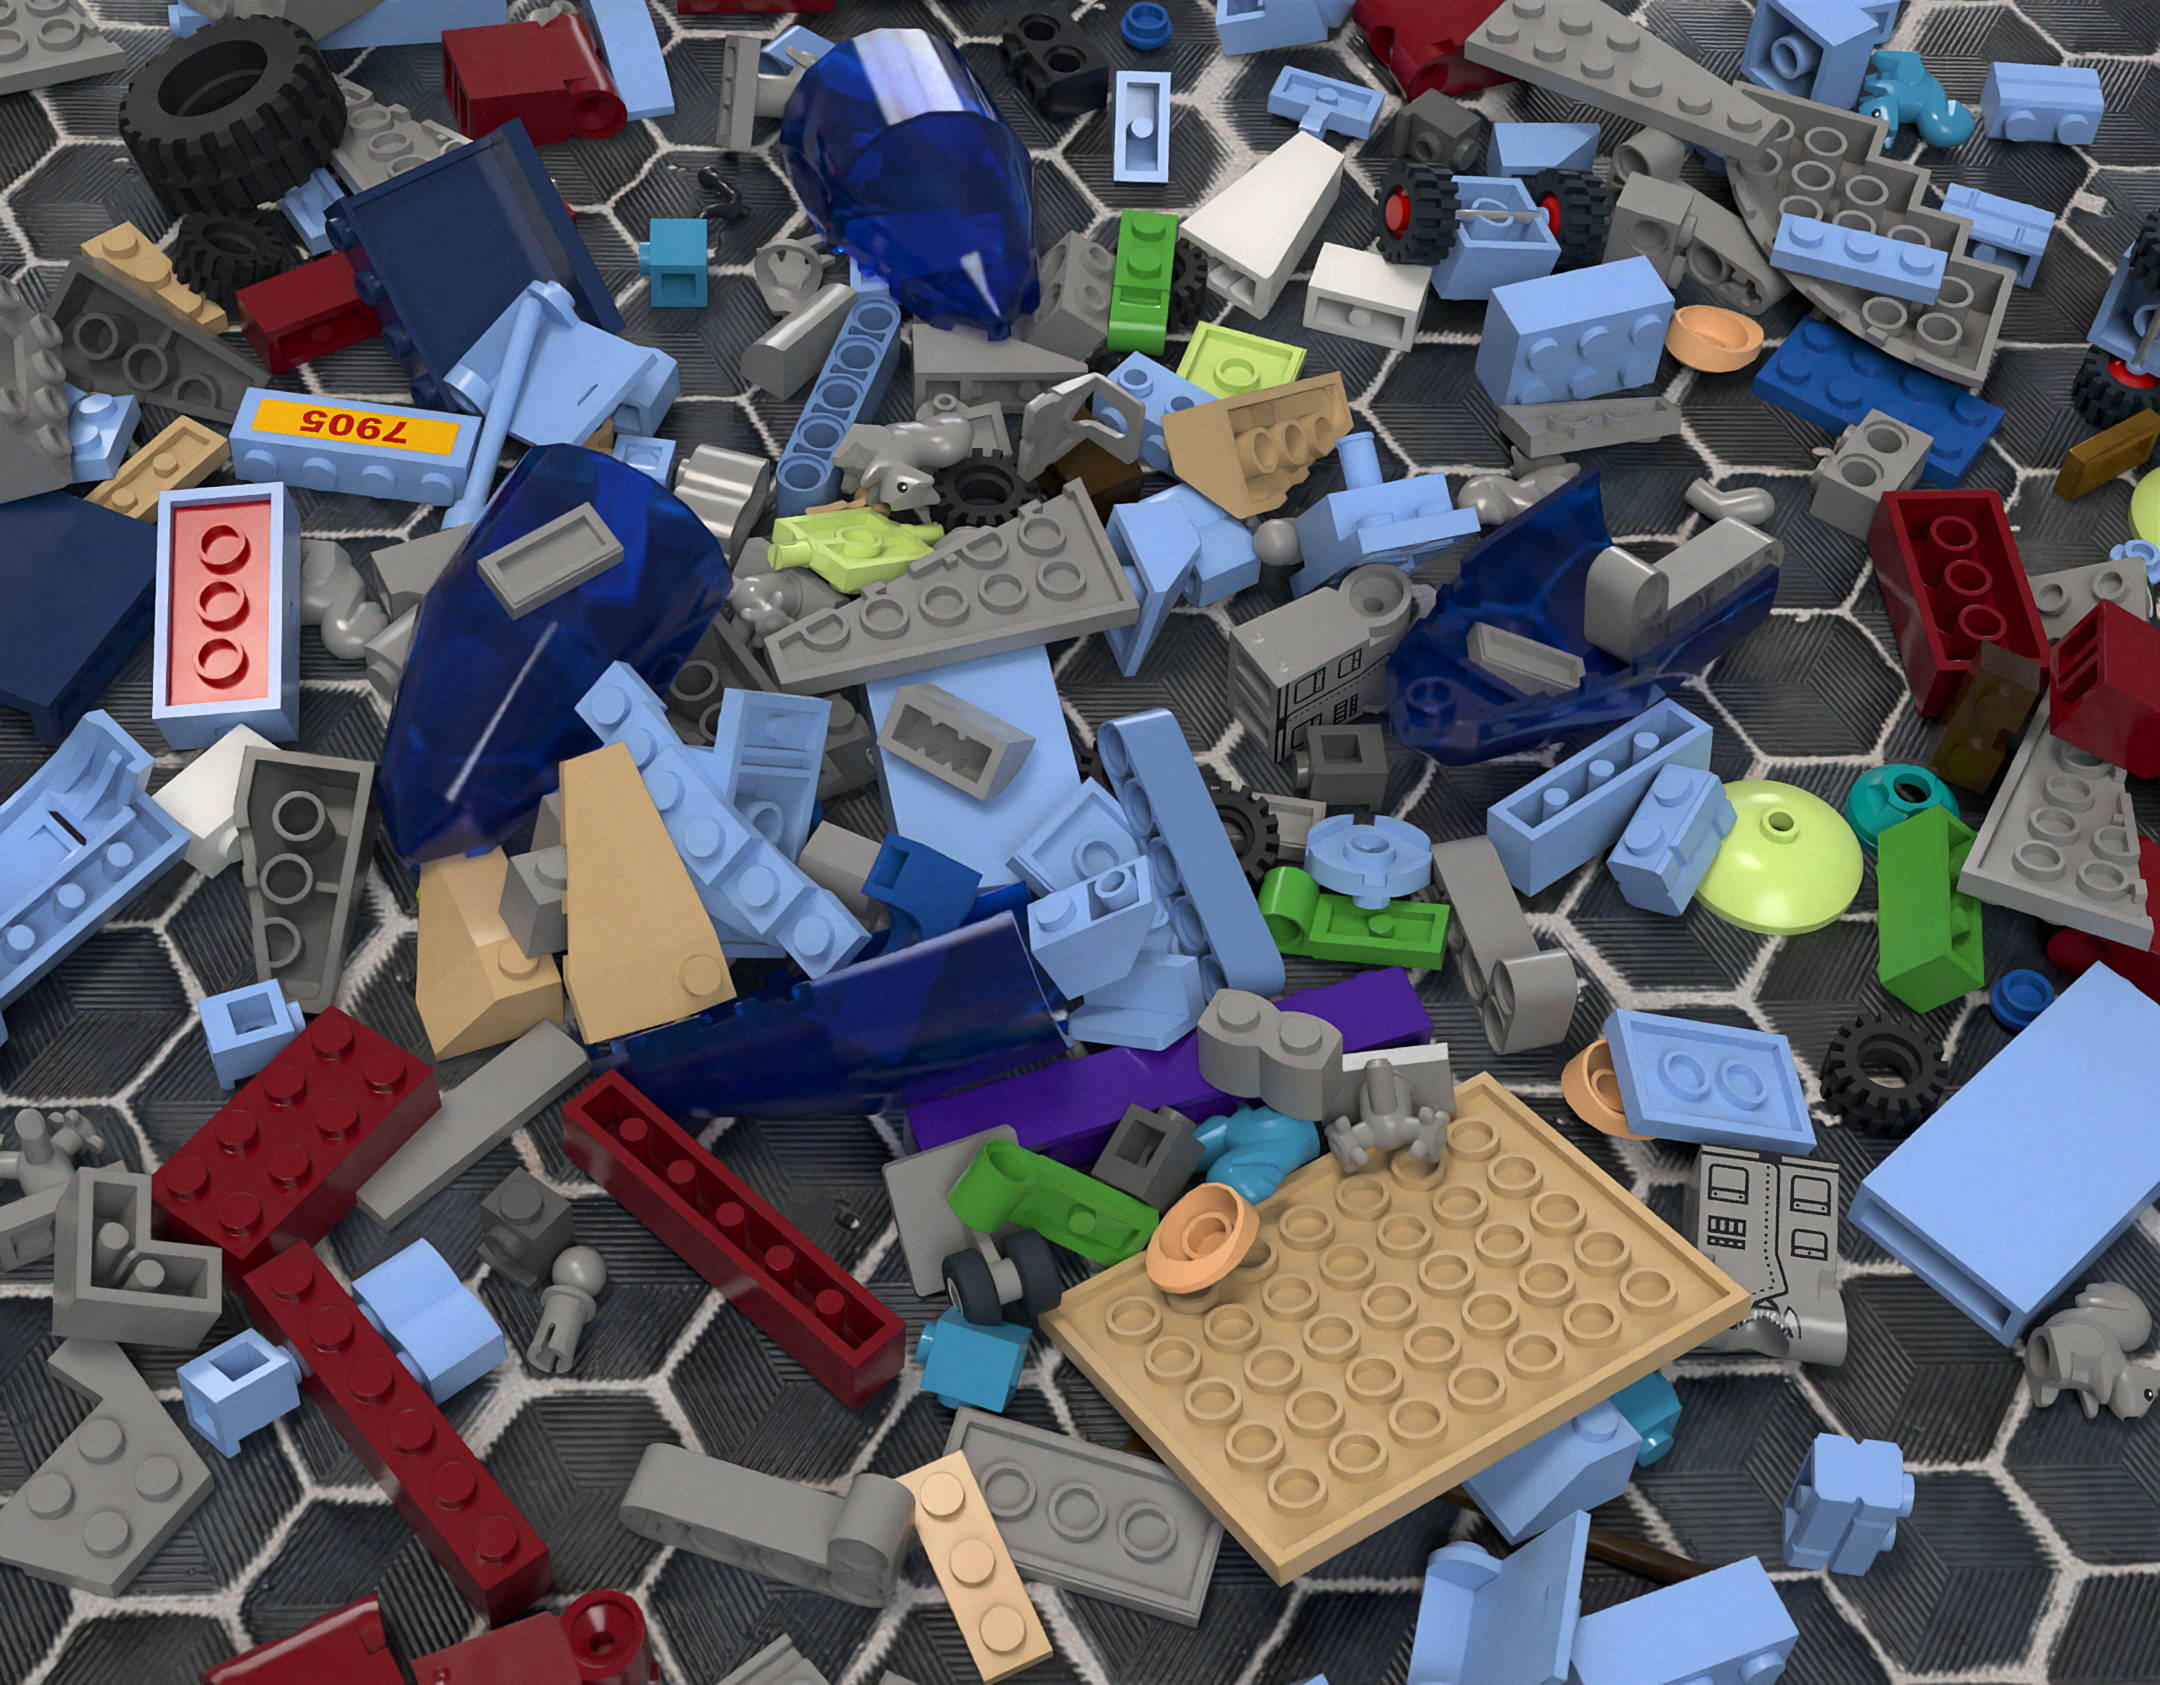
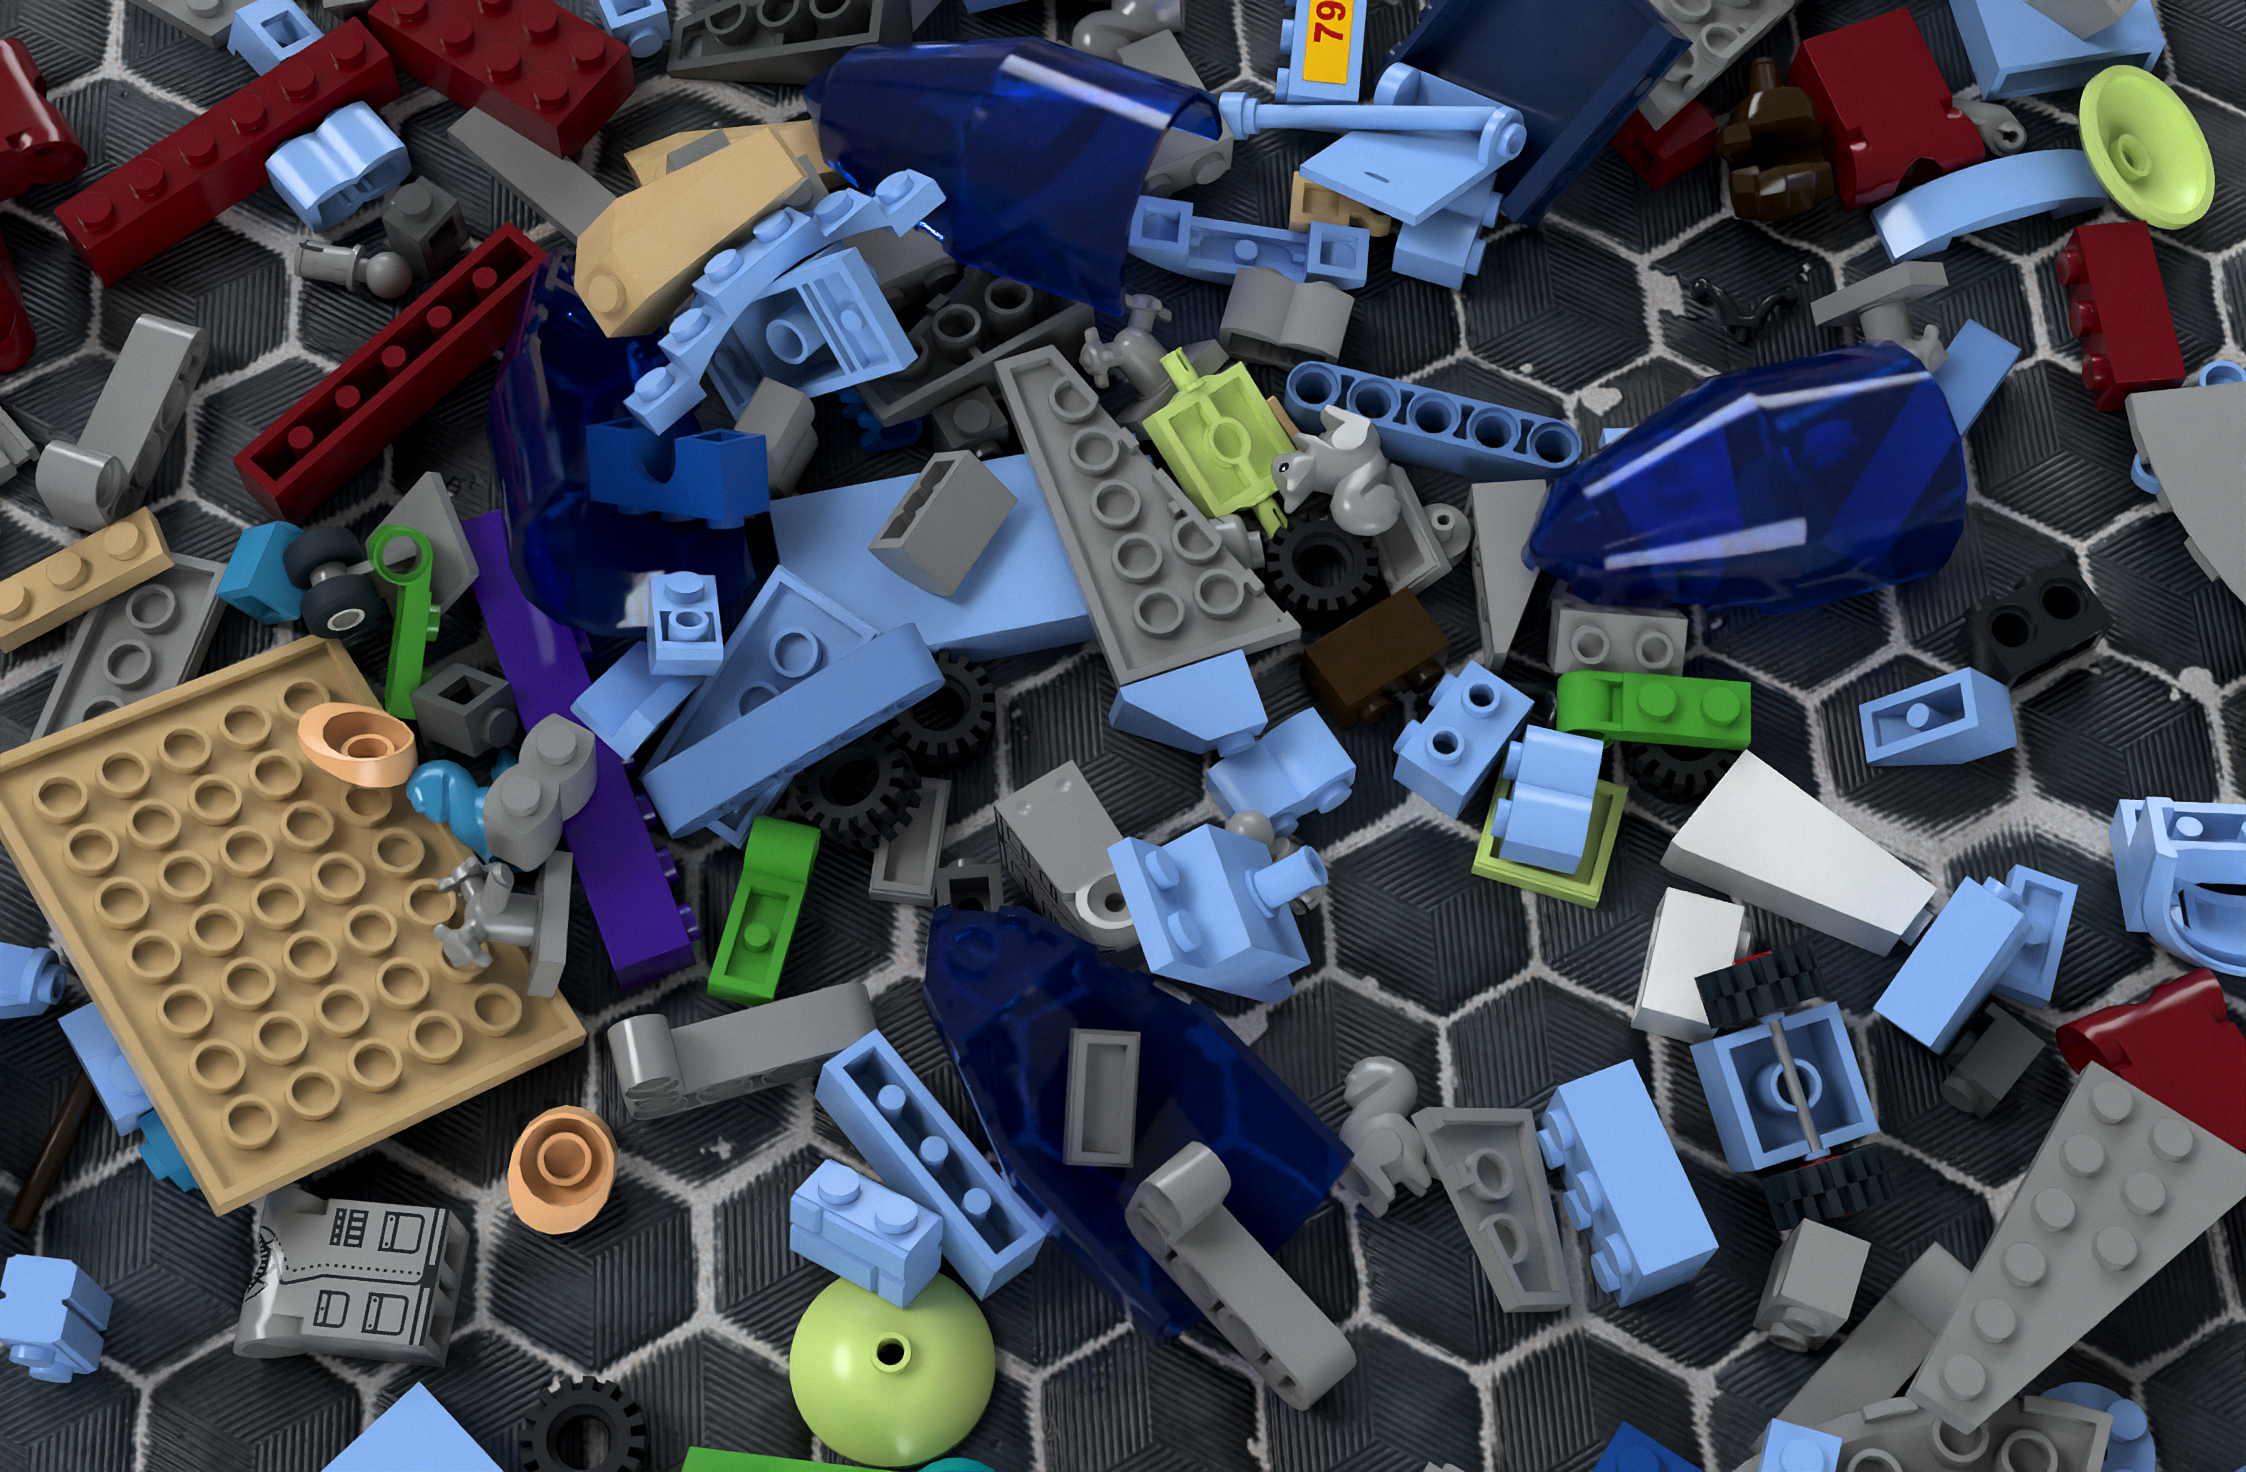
camera: 90 degrees right, 15 degrees up
(550, 561) = (1025, 102): light grey tile -> none
(584, 158) = (1774, 149): none -> dark brown piece
(676, 262) = (1633, 269): dark azure brick -> none
(792, 281) = (1632, 379): light grey piece -> none
(799, 343) = (1520, 380): light grey brick -> none
(1052, 434) = (1372, 604): light grey piece -> none
(1146, 26) = (2129, 737): blue plate -> none
(1227, 349) = (1549, 798): none -> light blue brick
(1257, 443) = (1402, 817): tan wedge -> none
(1368, 859) = (801, 930): light blue plate -> none
(1379, 107) = (1956, 964): none -> light blue brick
(1527, 148) = (1959, 1175): light blue slope -> none
(1708, 1083) = (554, 1246): light blue plate -> none
(1713, 339) = (1680, 1374): light nougat hat -> none
(1748, 504) = (1402, 1373): light grey arm -> none

